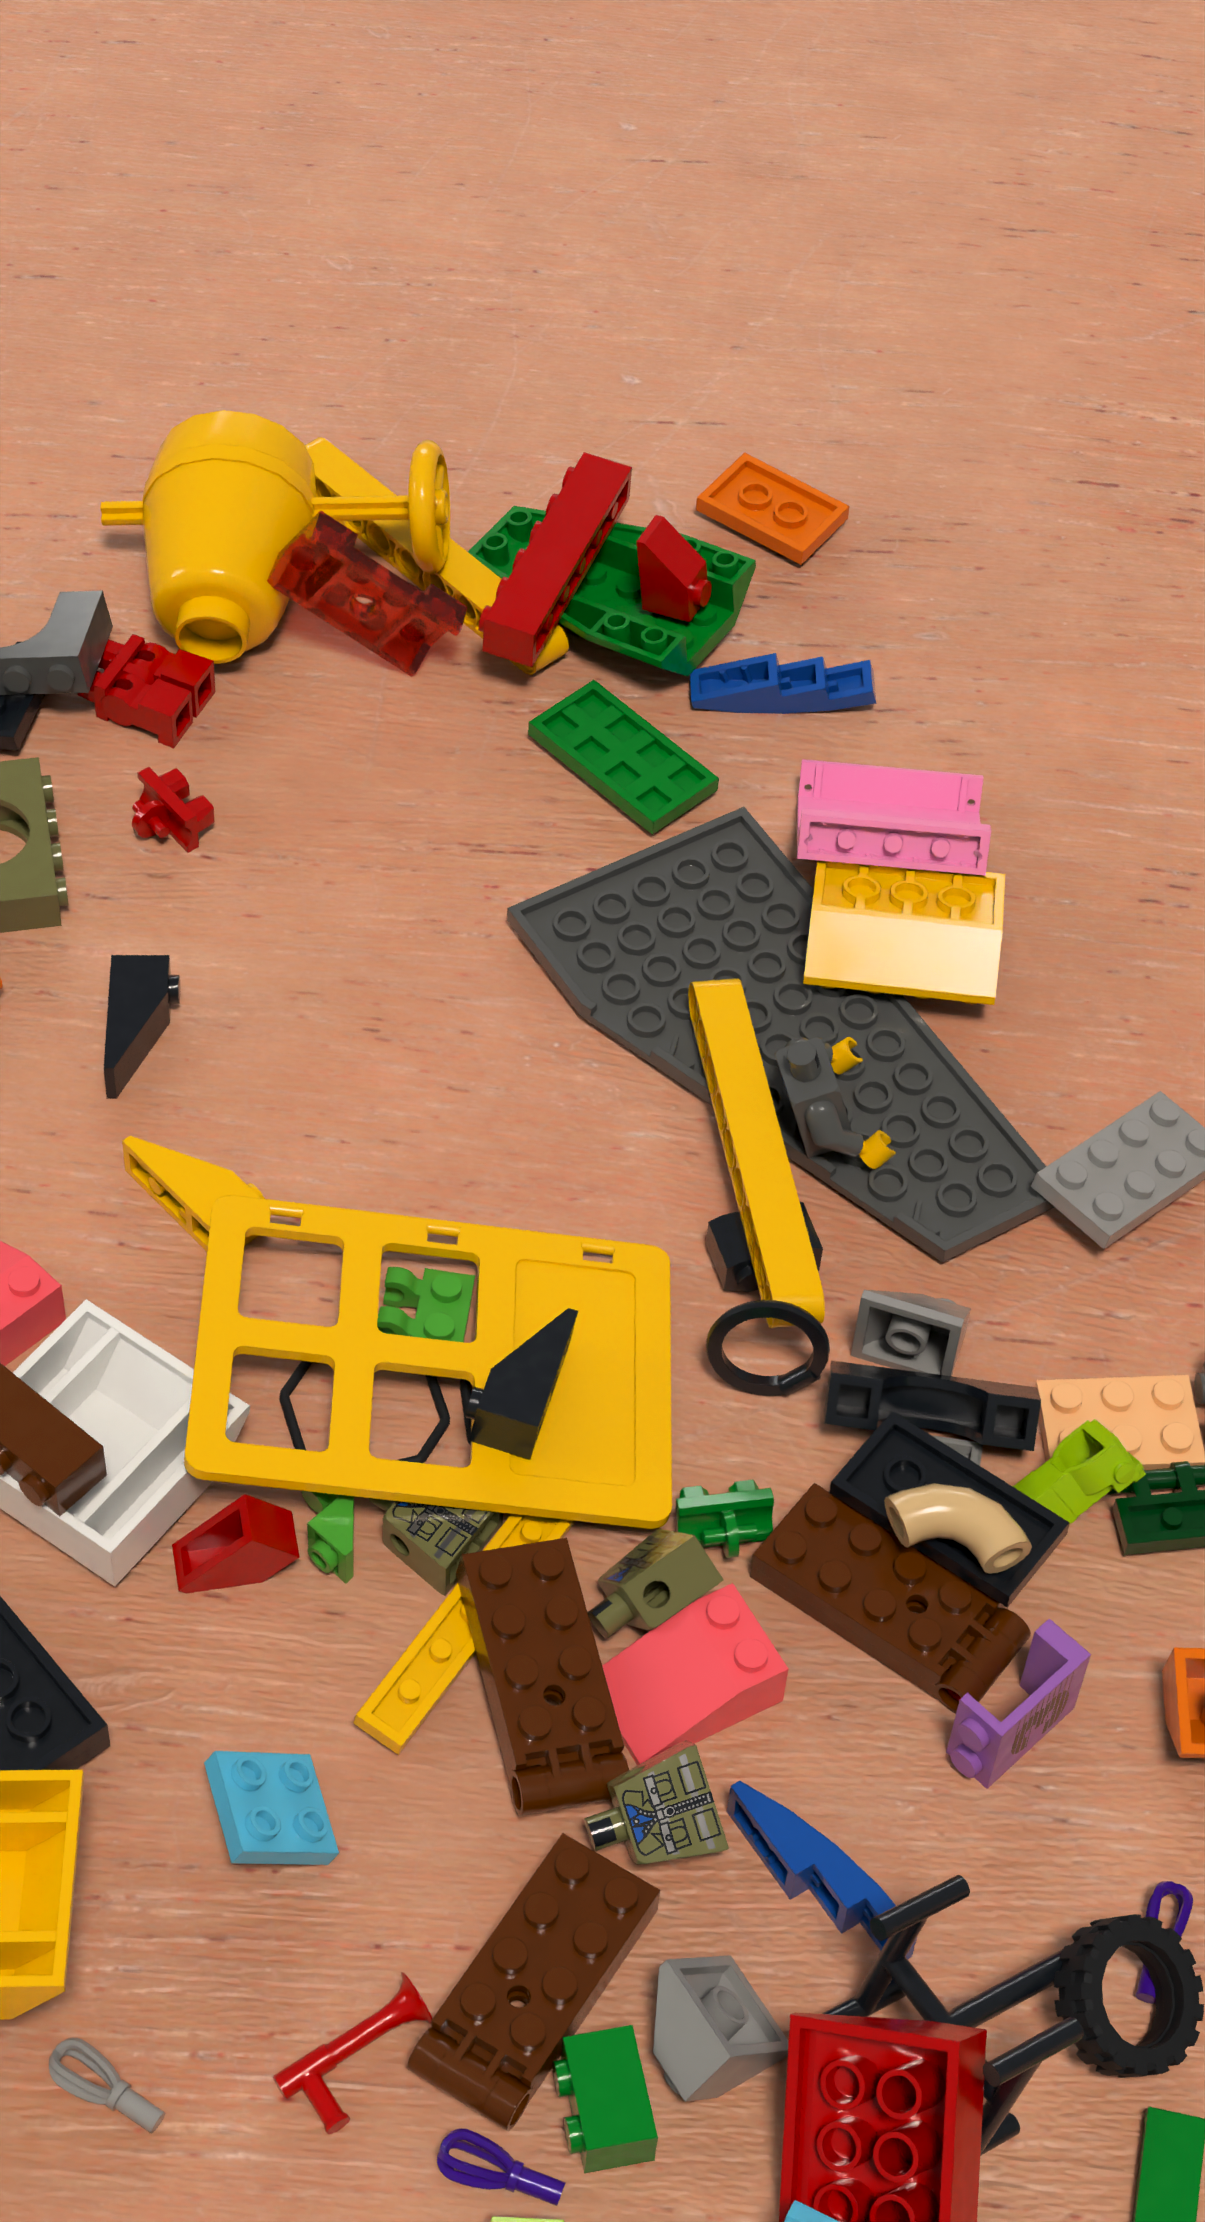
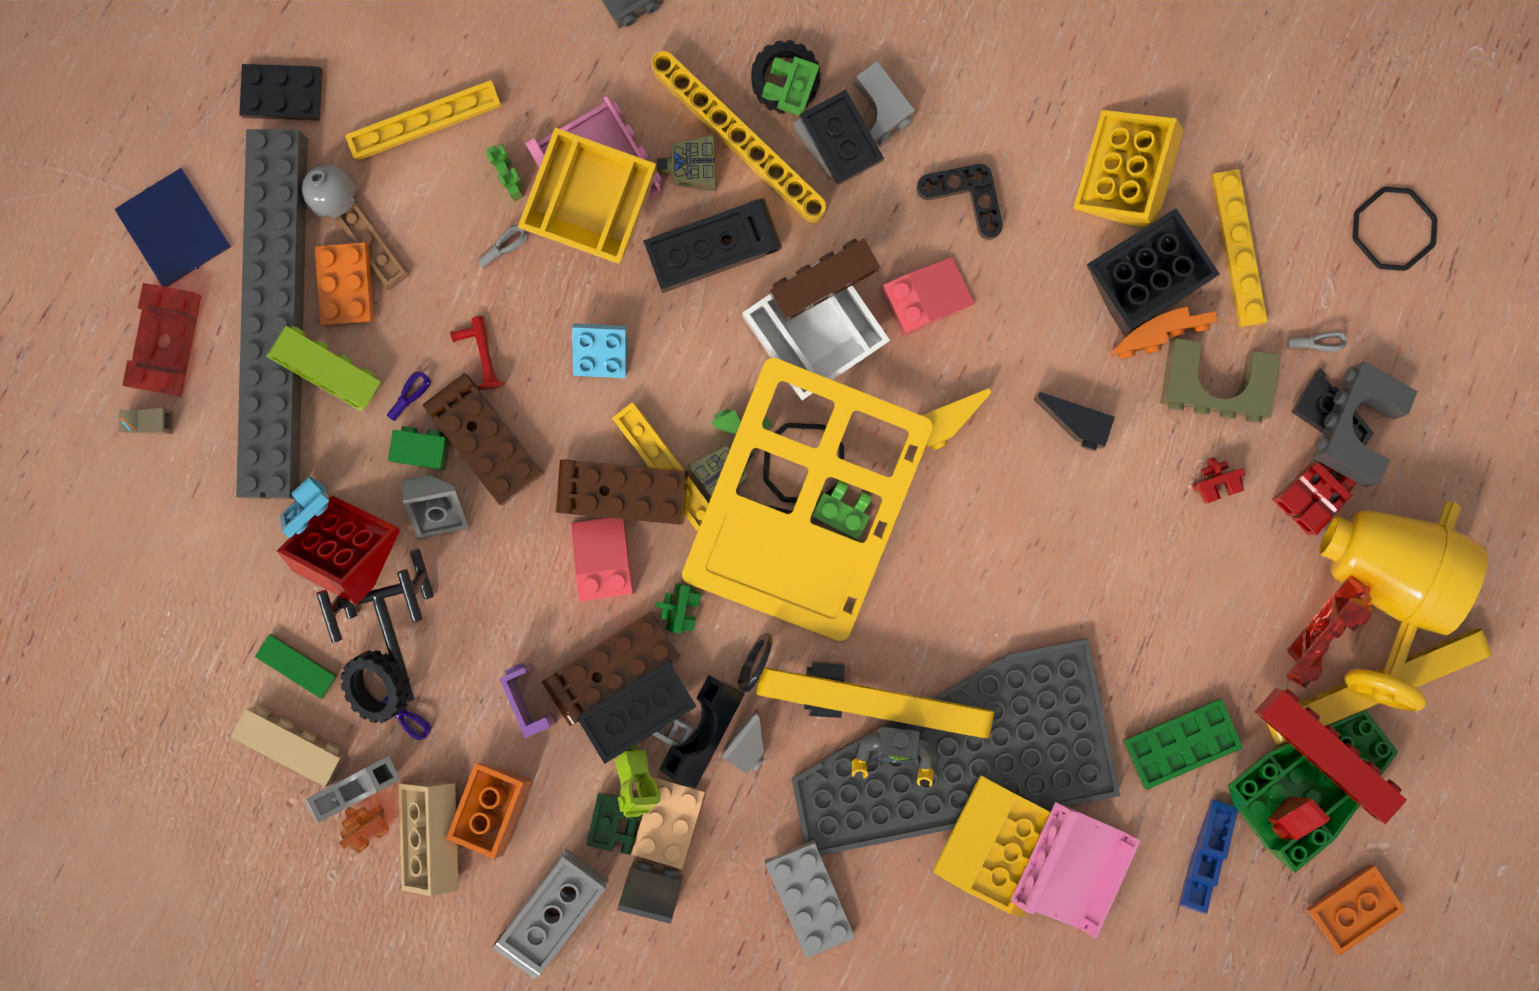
camera: 115 degrees right, 35 degrees up
(236, 1547) = (739, 376): red slope -> none
(520, 1389) = (762, 528): black slope -> none
(654, 1582) = (649, 559): olive torso -> none
(661, 1810) = (535, 519): olive torso -> none
(806, 1860) = (495, 576): blue slope -> none
(959, 1516) = (618, 710): tan cylinder -> none

